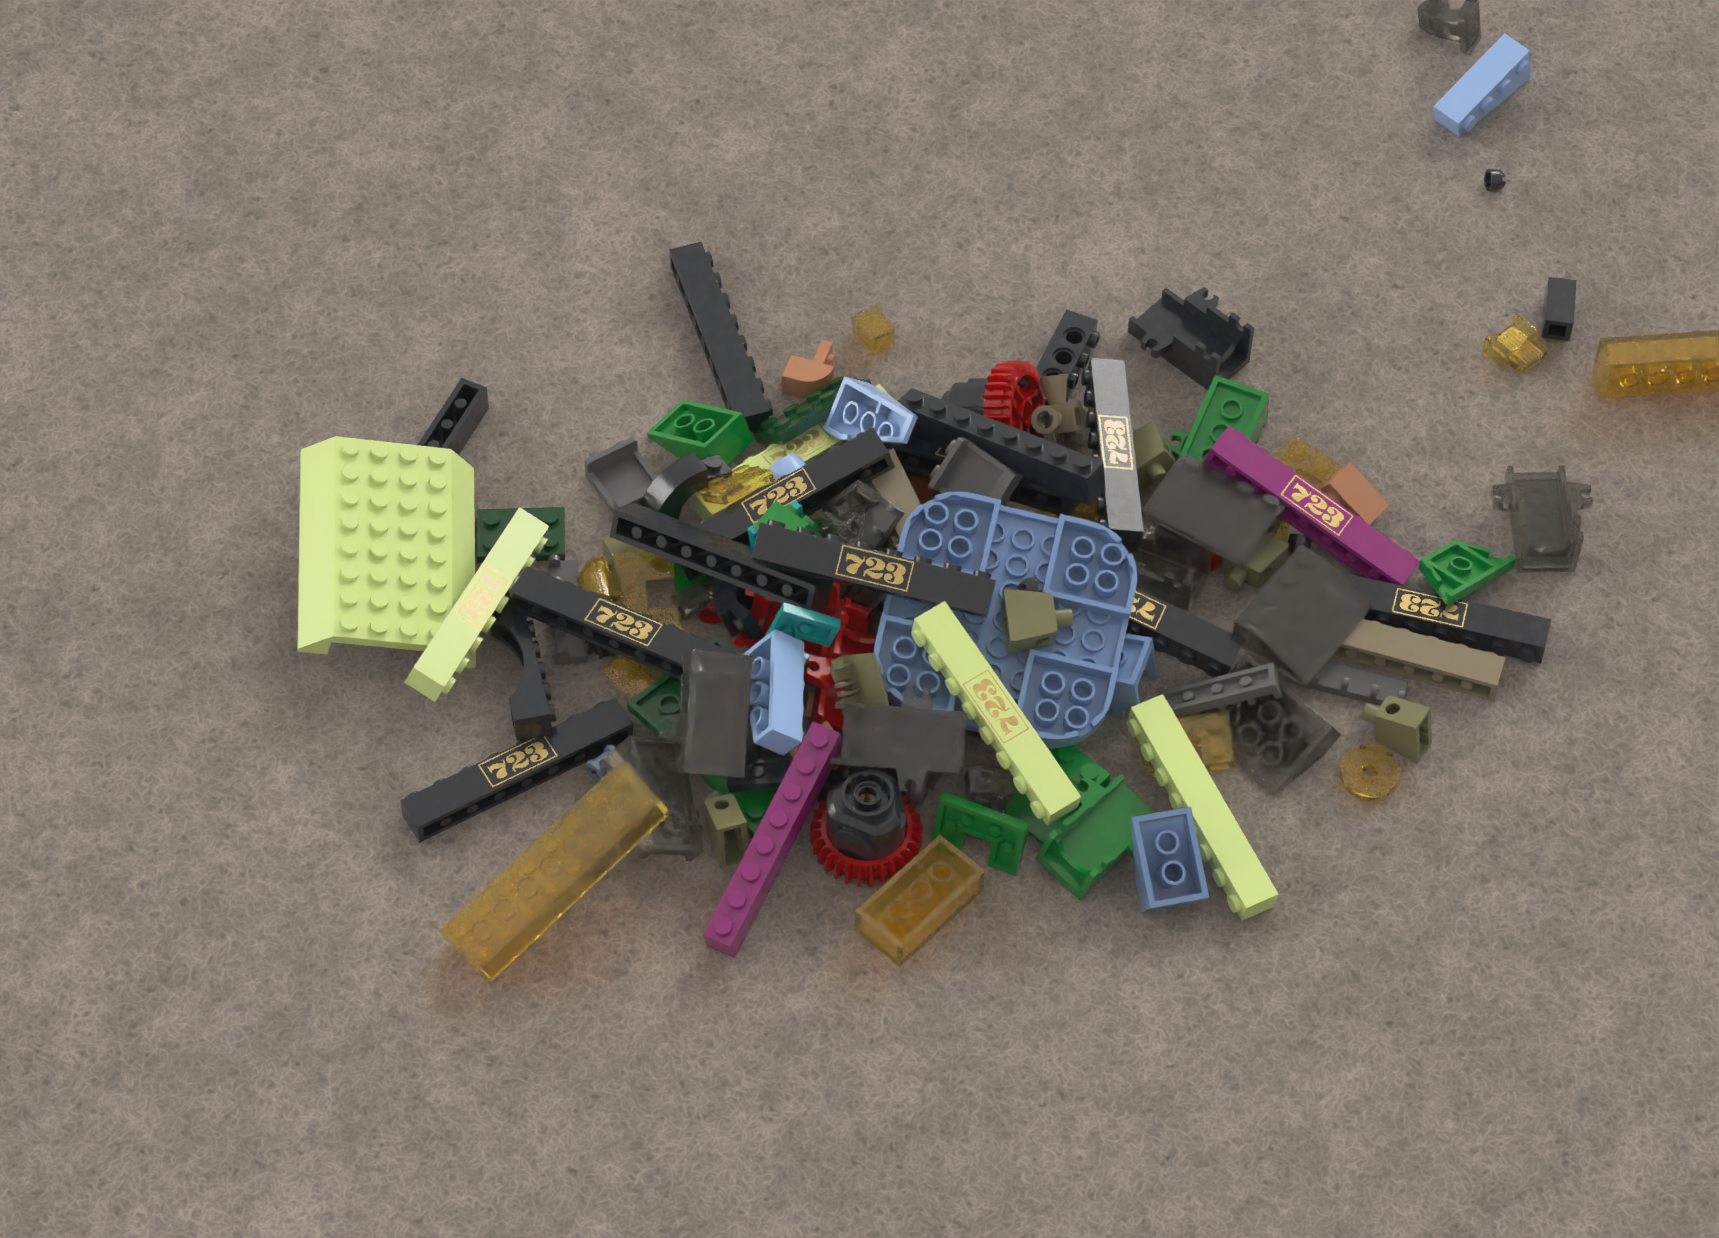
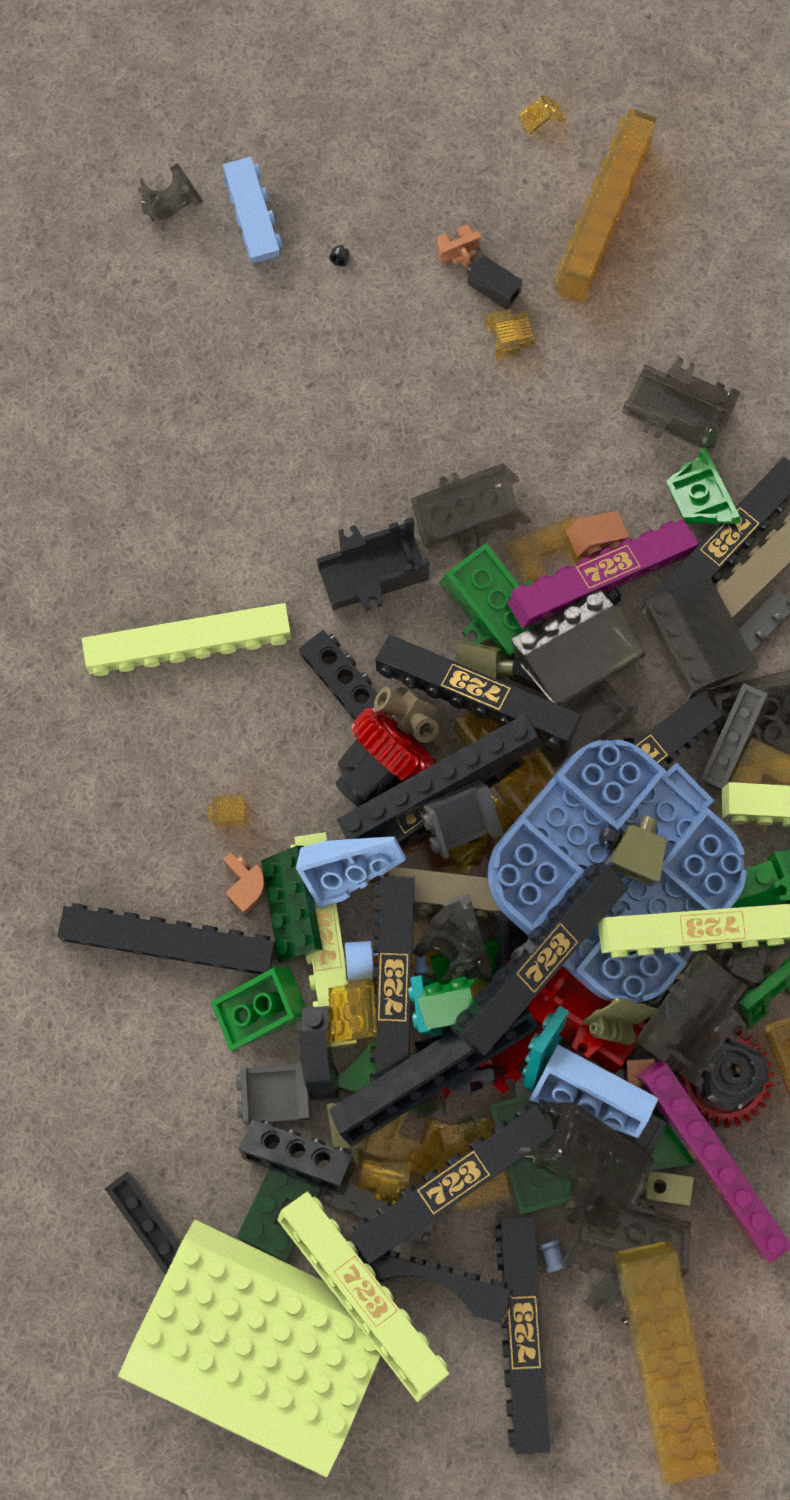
camera: 60 degrees left, 20 degrees up
(578, 513) = (331, 1177): none -> black brick
(1019, 228) = (186, 639): none -> yellowish green brick
(1304, 385) = (468, 509): none -> clear smoke piece
(1571, 266) = (460, 249): none -> nougat hips

